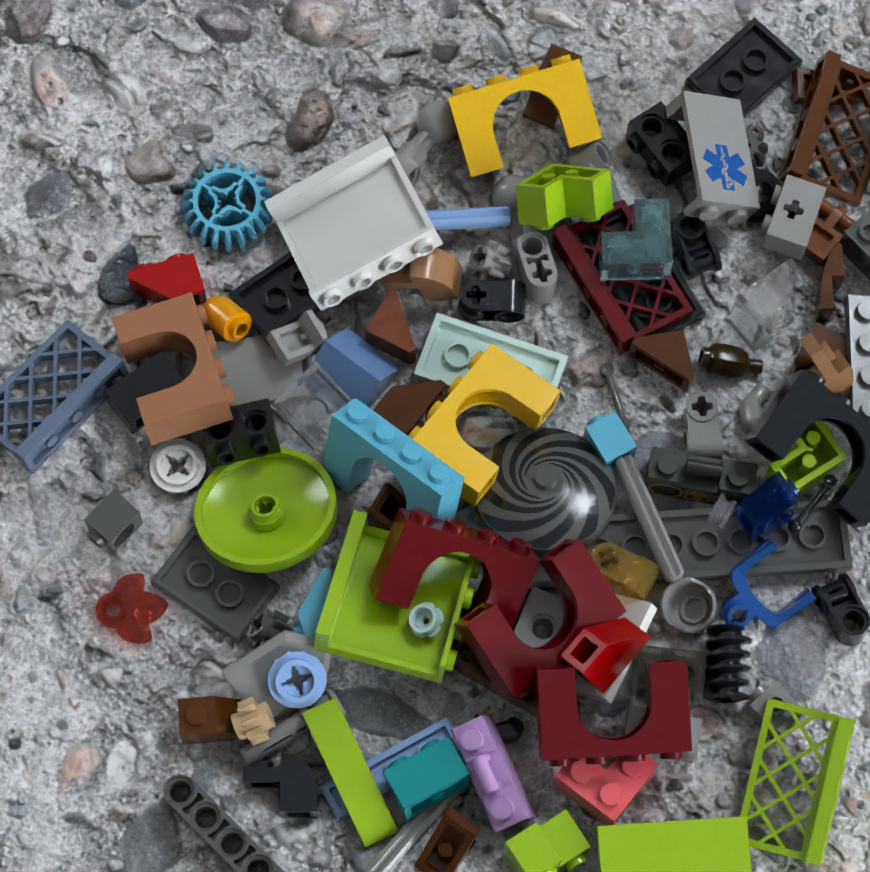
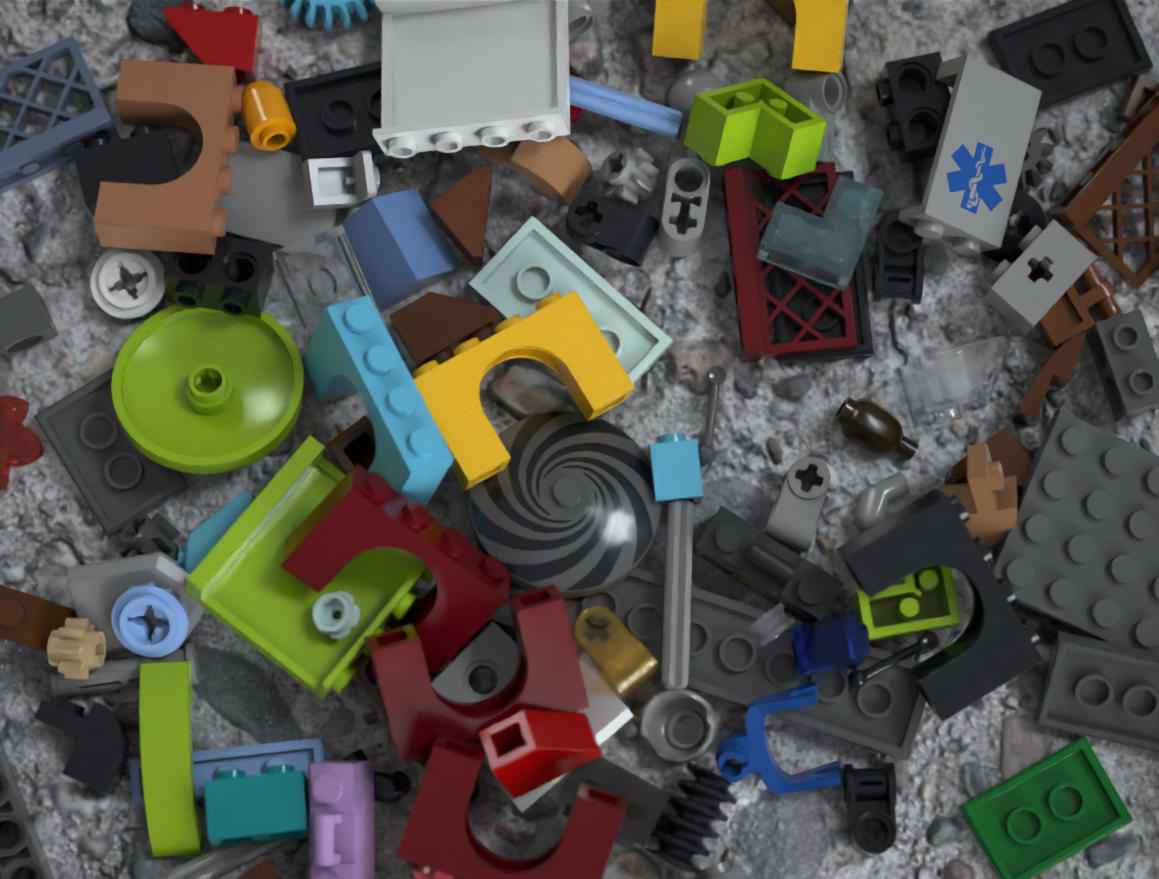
camera: 20 degrees right, 10 degrees up
(666, 356) = (798, 390): reddish brown slope -> none

